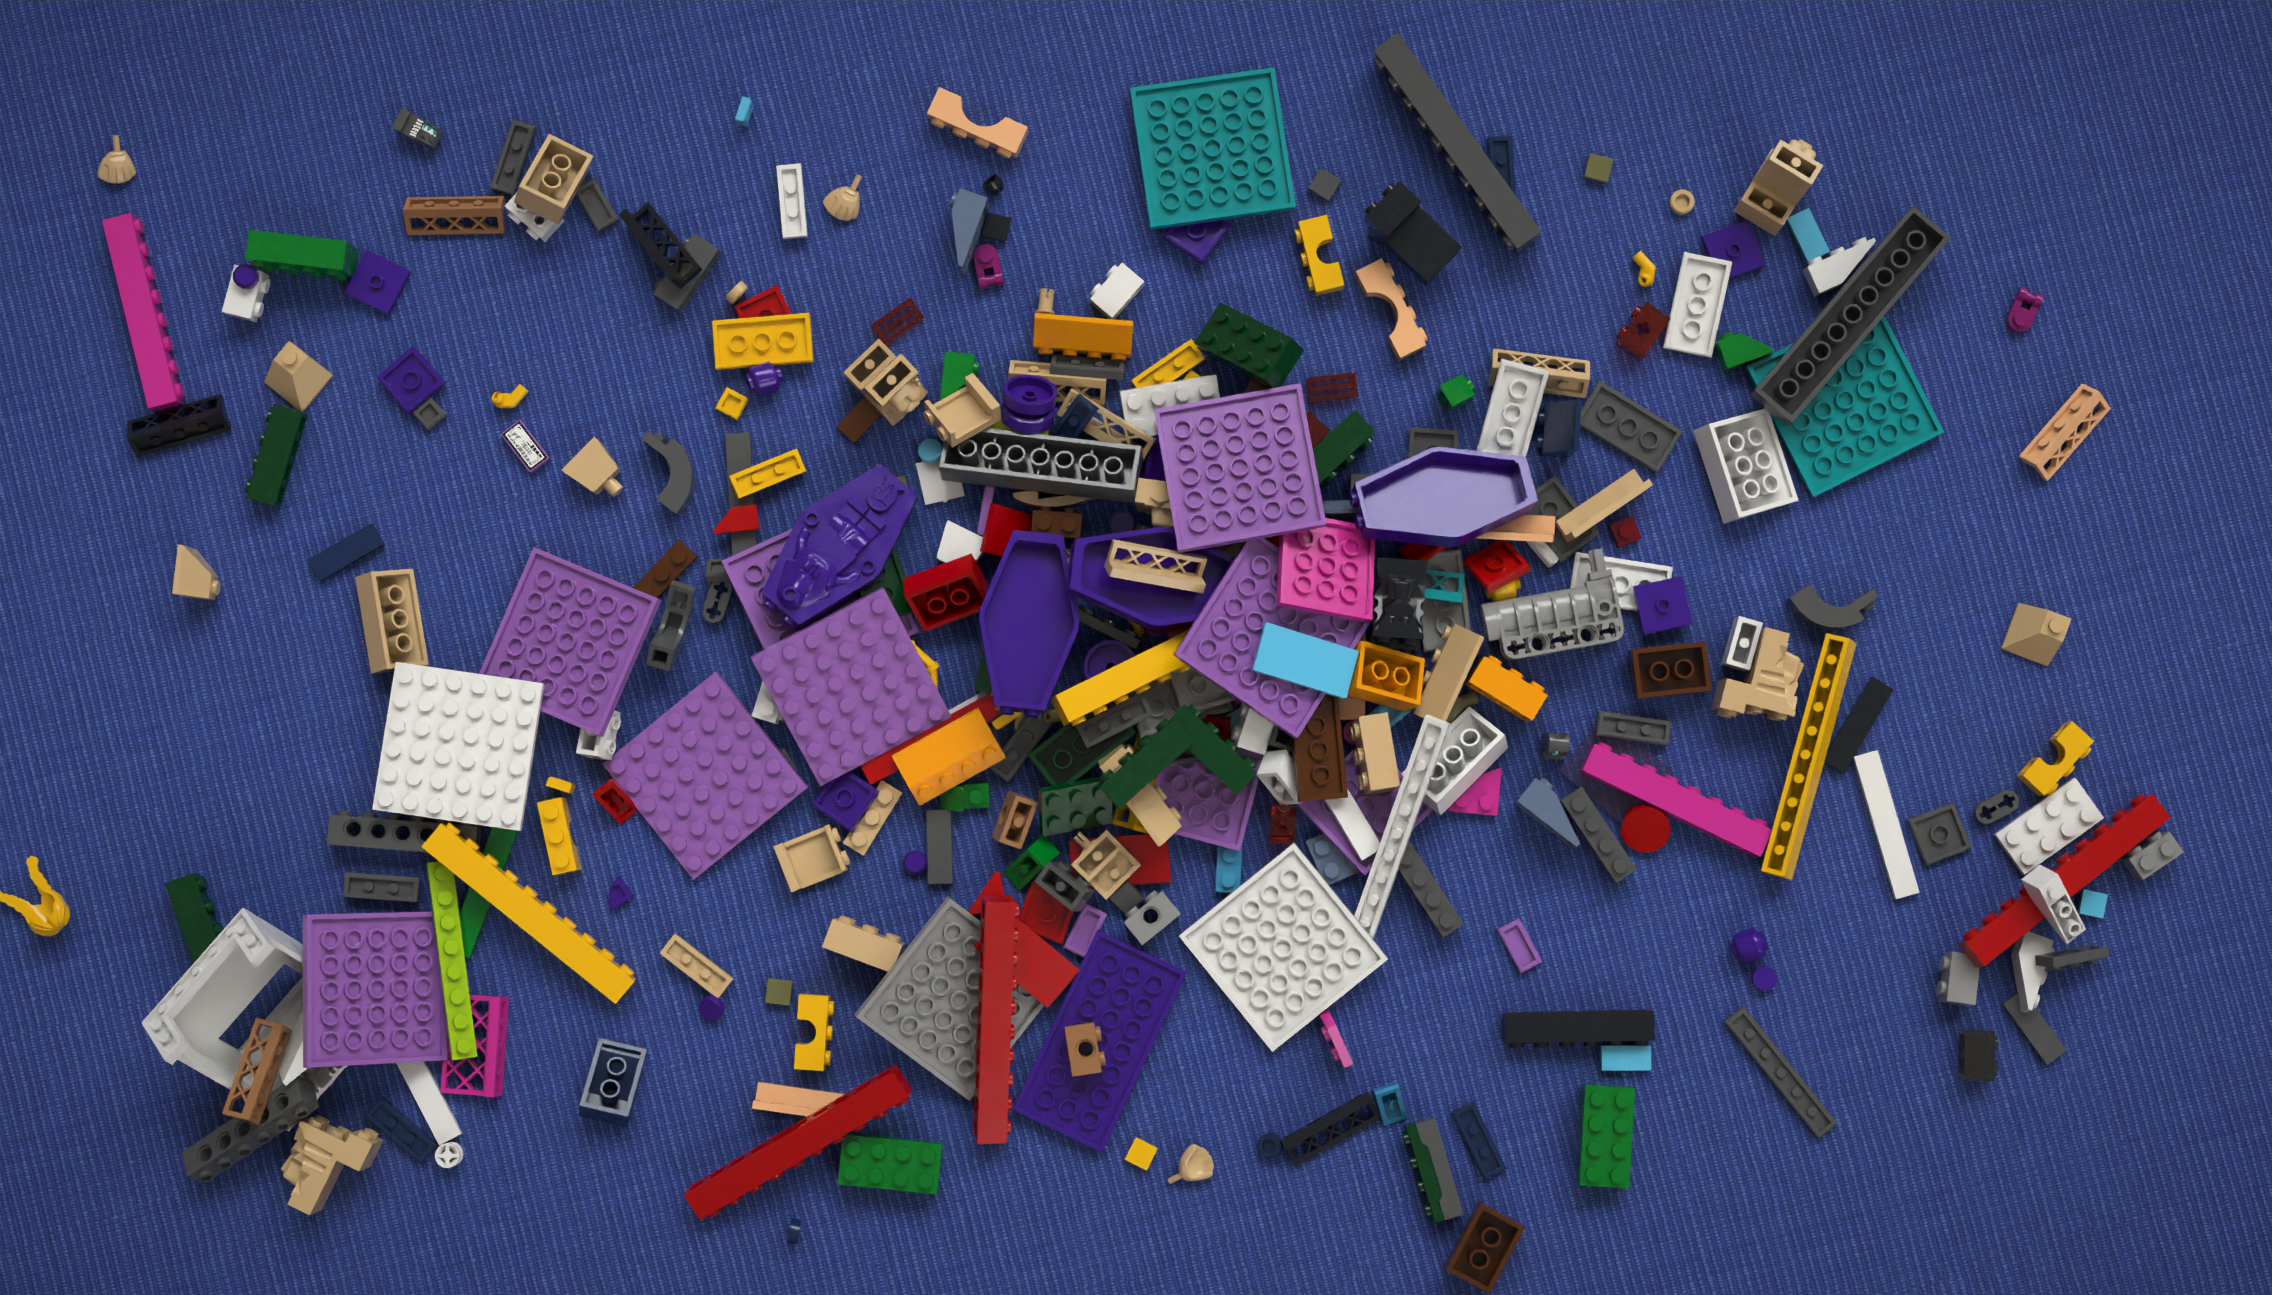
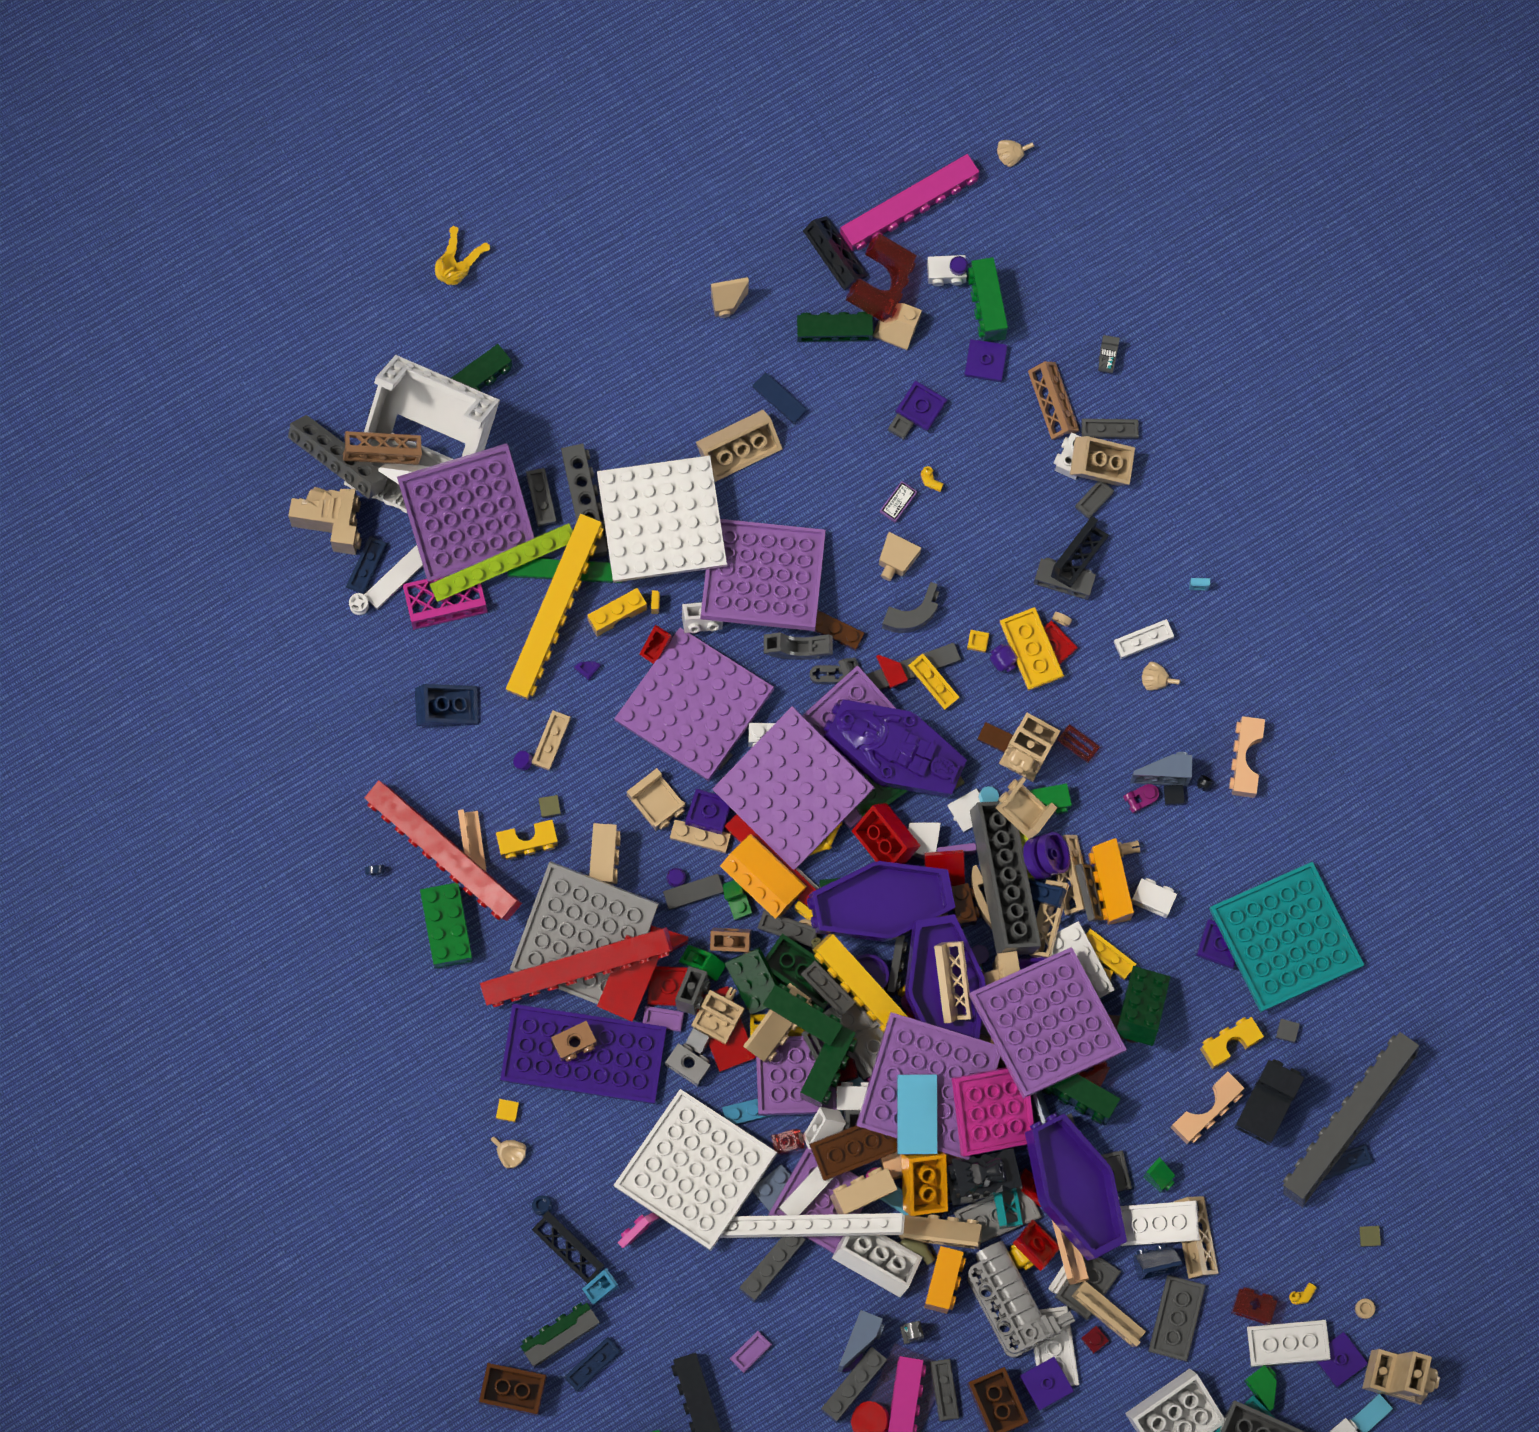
camera: 70 degrees right, 10 degrees down
(220, 350) = (898, 263): none -> clear red arch
(1353, 384) = (1127, 1067): clear red tile -> none
(1481, 796) = (856, 1287): dark pink wing -> none

